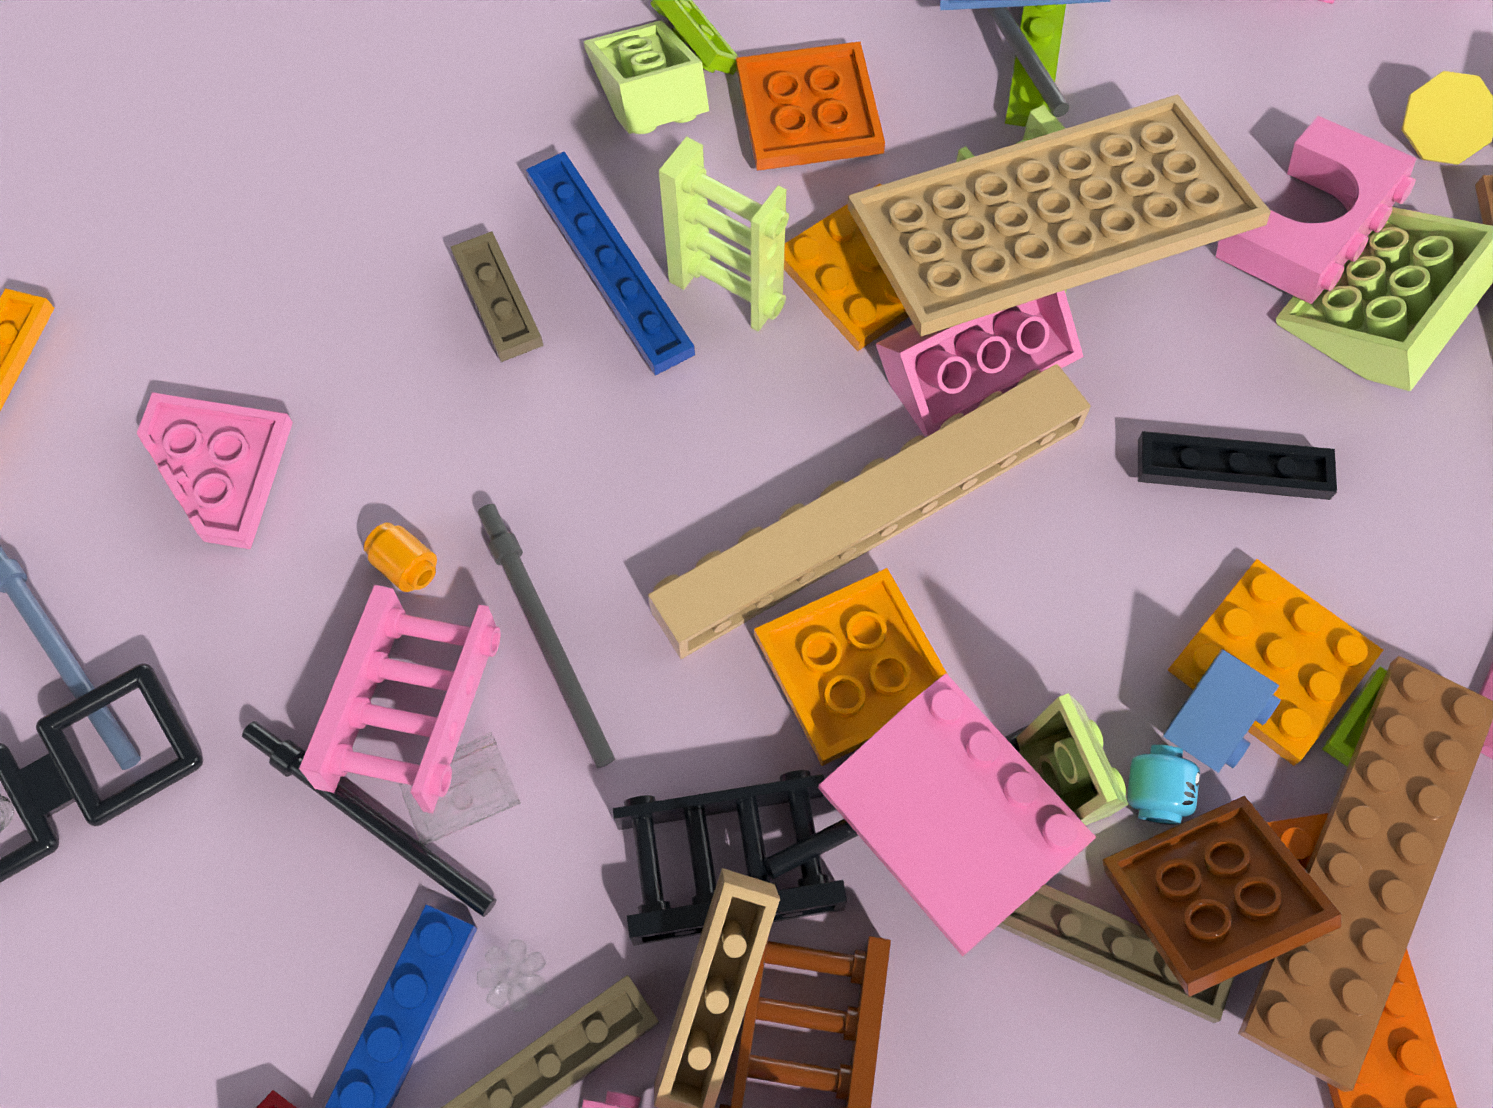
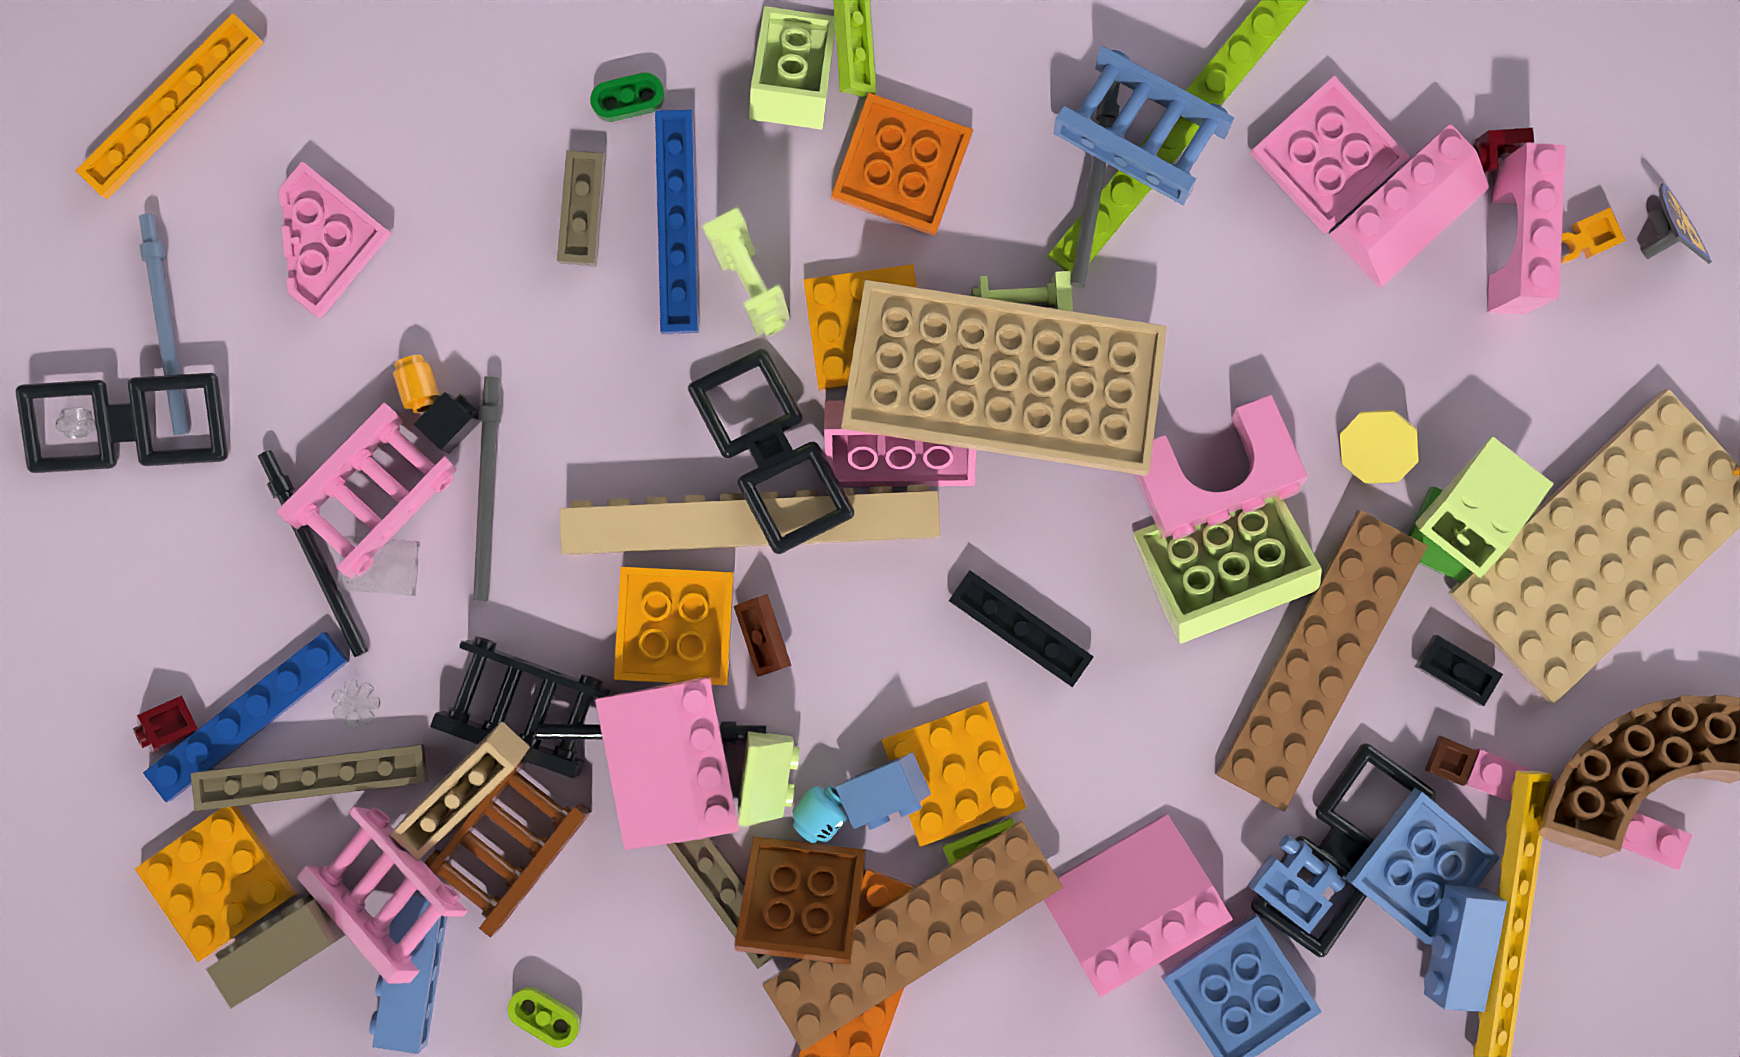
camera: 30 degrees right, 20 degrees up
(460, 577) = (448, 421): none -> black brick
(485, 175) = (627, 93): none -> green plate
(854, 418) = (770, 451): none -> black bar
(963, 620) = (762, 635): none -> copper plate

